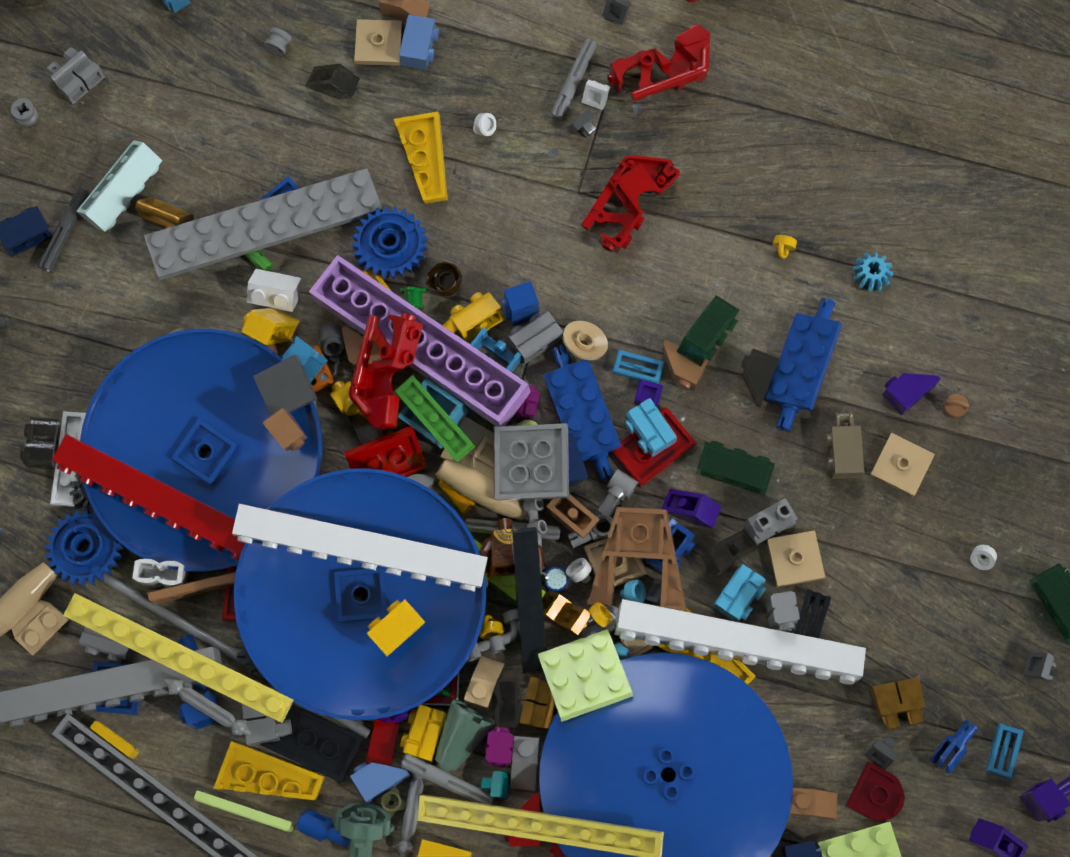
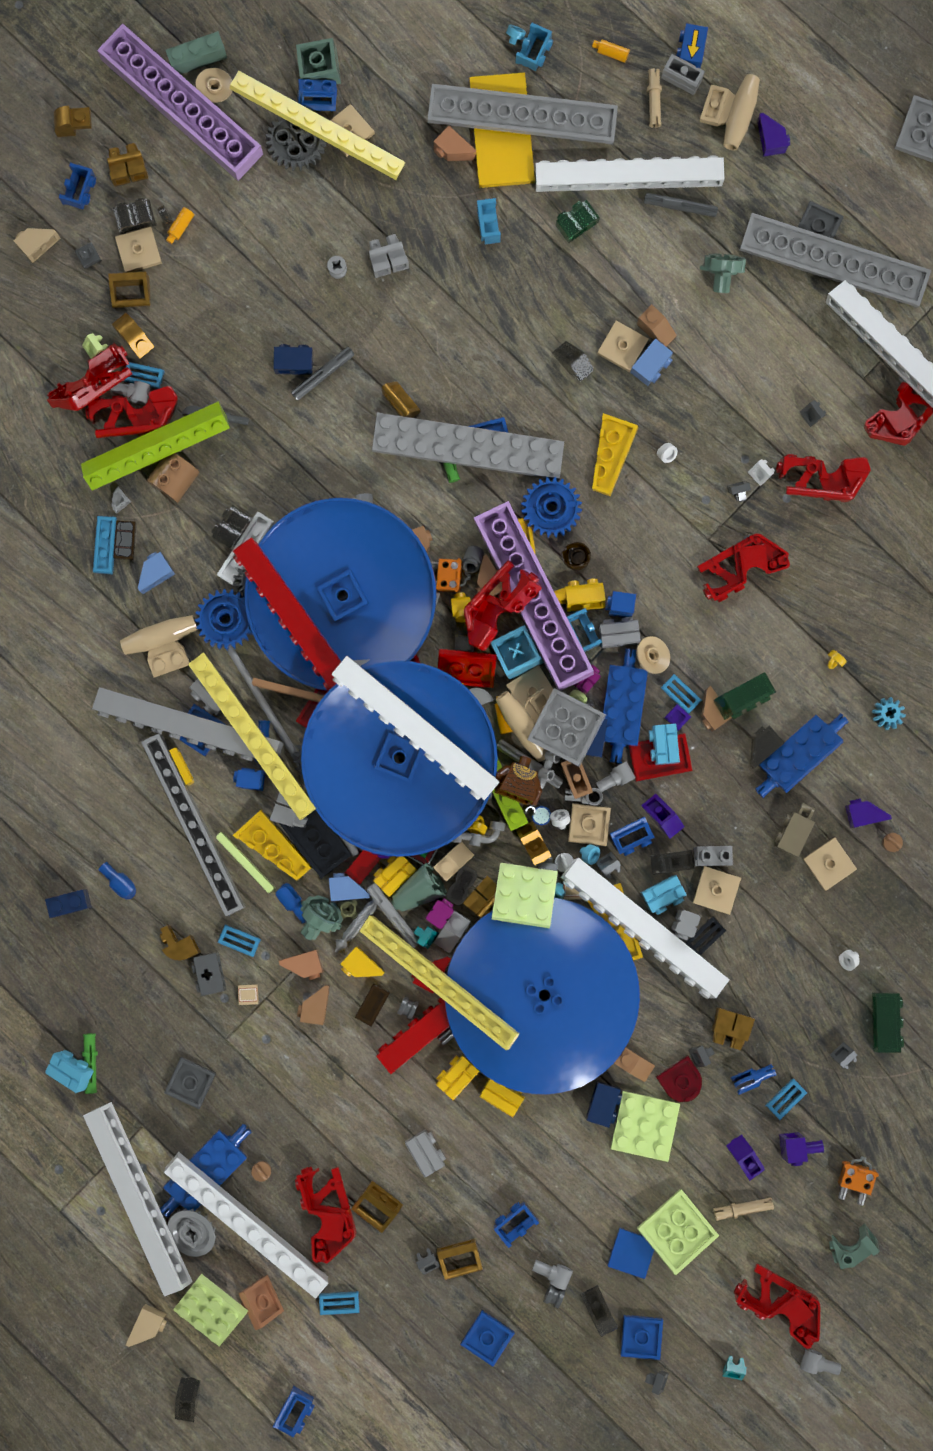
camera: 25 degrees right, 10 degrees up
(119, 186) = (378, 362): light aqua brick -> none
(154, 574) = (263, 664): white brick -> none
(207, 707) = (255, 781): light grey wheel -> none
(269, 326) = (433, 528): yellow brick -> none
(273, 290) = (450, 500): white piece -> none
(277, 41) = (548, 307): light grey wheel -> none
(285, 386) = (421, 583): dark grey tile -> none
(285, 430) = (406, 616): medium nougat slope -> none
(309, 357) = (444, 567): dark azure window -> none
(395, 627) = (410, 796): yellow piece -> none
(413, 296) = (546, 558): green brick -> none
(435, 418) = (515, 659): bright green plate -> none
(528, 597) = (514, 822): black tile -> none
(573, 79) = (751, 451): light grey axle -> none
(601, 614) = (558, 859): yellow tile -> none
(639, 535) = (616, 819): medium nougat wing -> none
(735, 467) = (709, 803): clear green brick -> none

